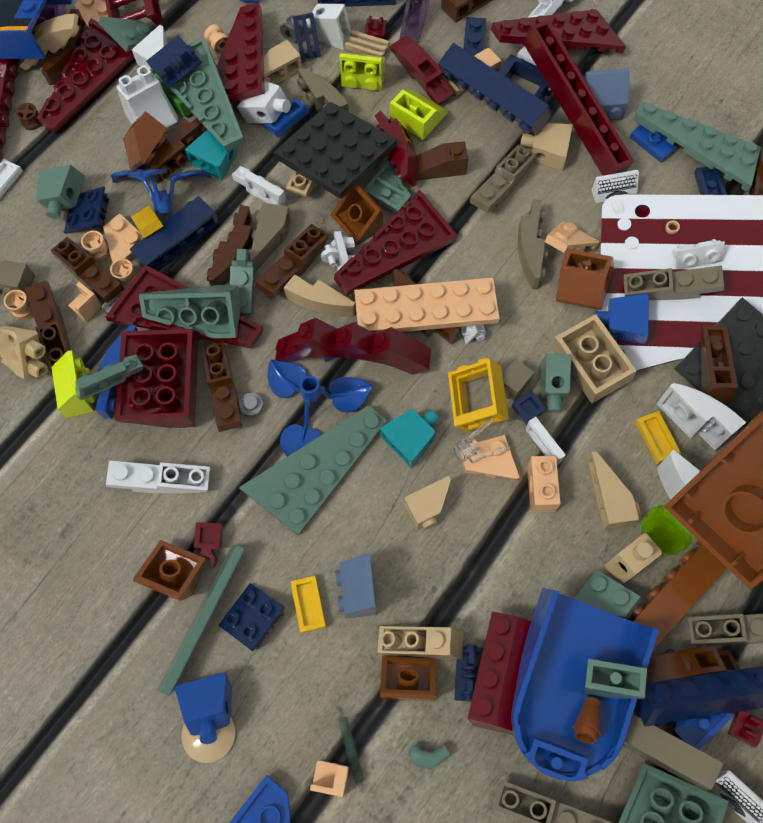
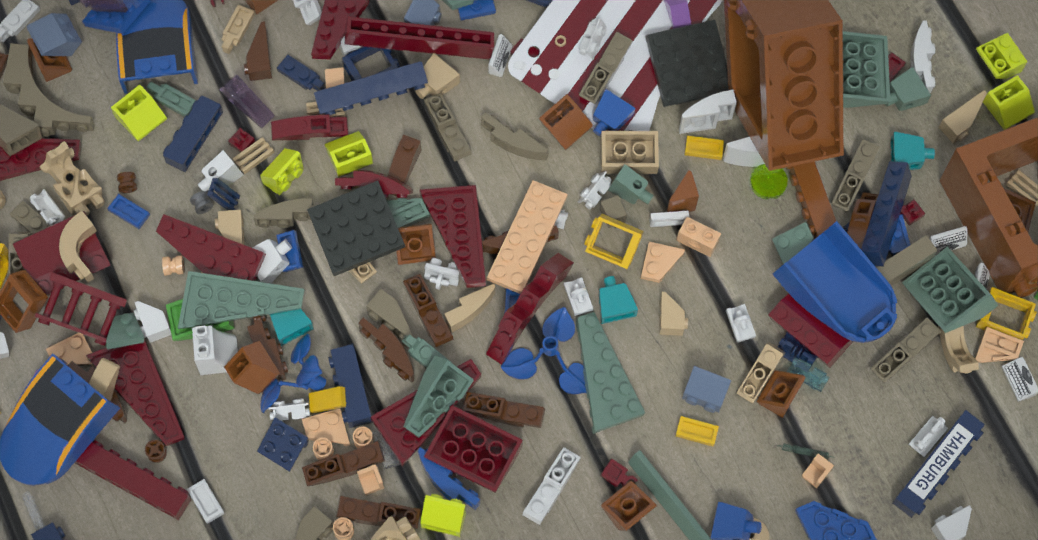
camera: 65 degrees left, 0 degrees up
(59, 189) = (254, 454): sand green torso -> none
(108, 377) = (464, 476): sand green hinge -> none
(119, 192) = (298, 409): none -> white hinge
(174, 61) = (197, 305): dark blue hinge -> none
(251, 404) = (528, 396): light grey plate -> none
(252, 617) = (687, 470): dark blue hinge -> none
(259, 186) = (344, 302): white hinge -> none
(392, 393) = (578, 296): none -> white hips
(426, 758) = (836, 405): sand green arm -> none
(445, 707) = (816, 379): none -> clear light blue hinge
(465, 586) = (740, 323): none -> white hips
(468, 447) = (649, 269): clear plant -> none
(519, 349) = (590, 195): none -> white hinge
(528, 407) = (640, 214): dark blue tile -> none
(567, 236) = (525, 112): light nougat wing -> none
(579, 439) = (685, 196): none -> dark orange slope
(588, 723) = (865, 294): dark orange cone -> none
(613, 498) = (730, 200): tan slope -> none
(615, 680) = (851, 264): sand green slope -> none
(634, 557) = (778, 208): tan torso -> none
(717, 364) = (683, 80): reddish brown slope -> none

